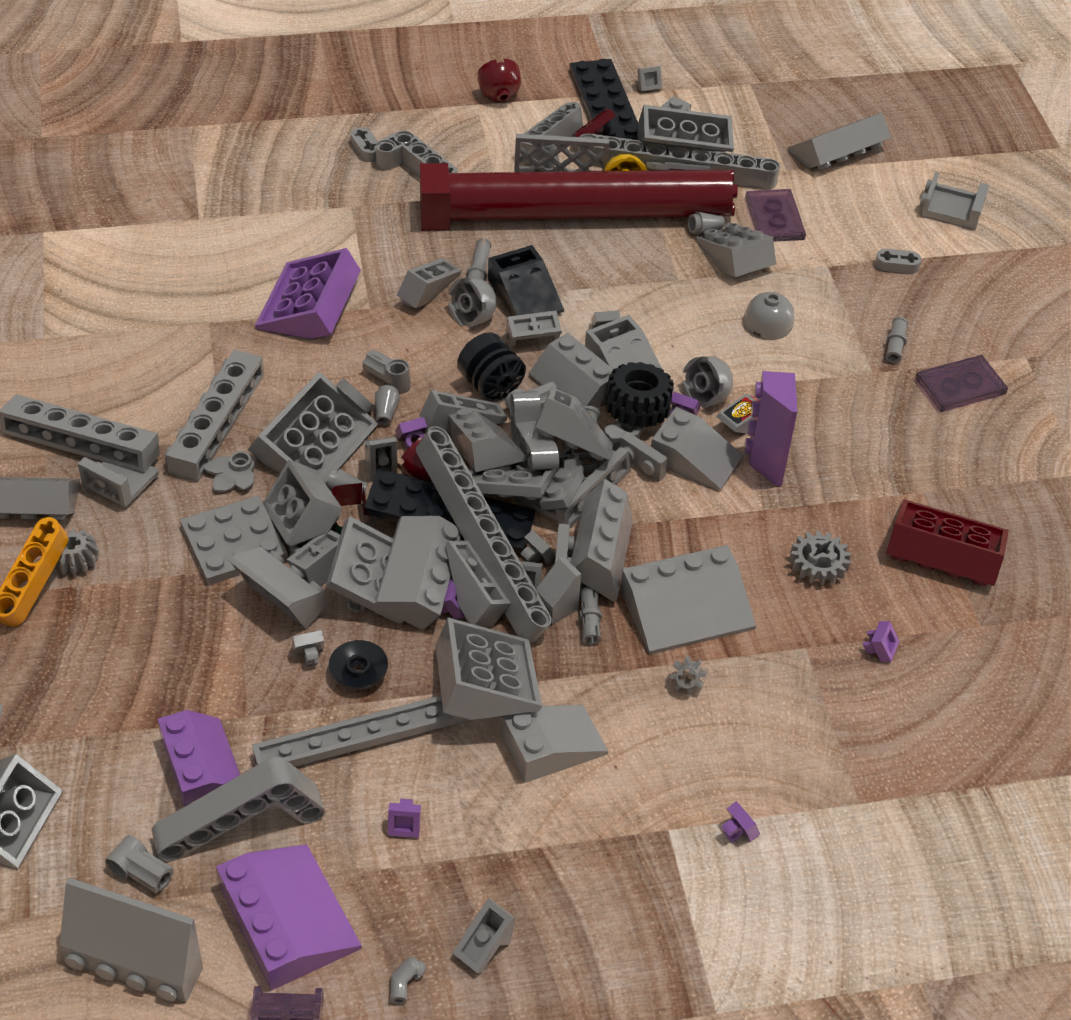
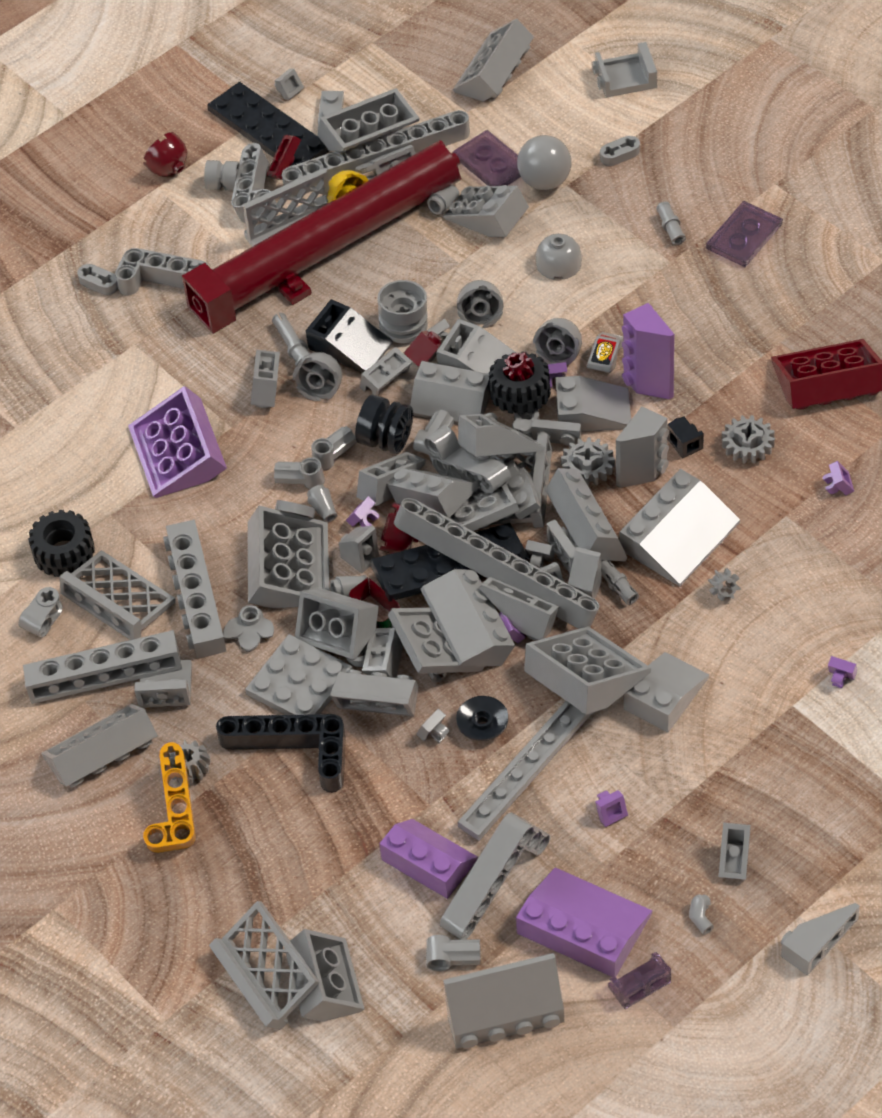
camera: 25 degrees left, 5 degrees up
(74, 365) = (41, 612): none -> light grey piece
(127, 382) = (103, 605): none -> light grey fence
(142, 319) = (58, 528): none -> black tyre
(206, 593) = (292, 738): none -> black beam
(425, 364) = (333, 446): none -> light grey piece
(518, 229) = (294, 289): none -> dark red tile
(529, 113) = (220, 175): none -> light grey wheel
(579, 322) = (423, 347): none -> dark red brick
(588, 286) = (402, 310): none -> light grey wheel
(642, 375) = (518, 367): none -> dark red gear
(652, 495) = (590, 459): none -> light grey gear
(662, 316) = (480, 303): none -> light grey cylinder
(701, 506) = (642, 449): none -> light grey slope
(760, 523) = (685, 437): none -> black brick
(815, 232) = (544, 162): none -> light grey piece

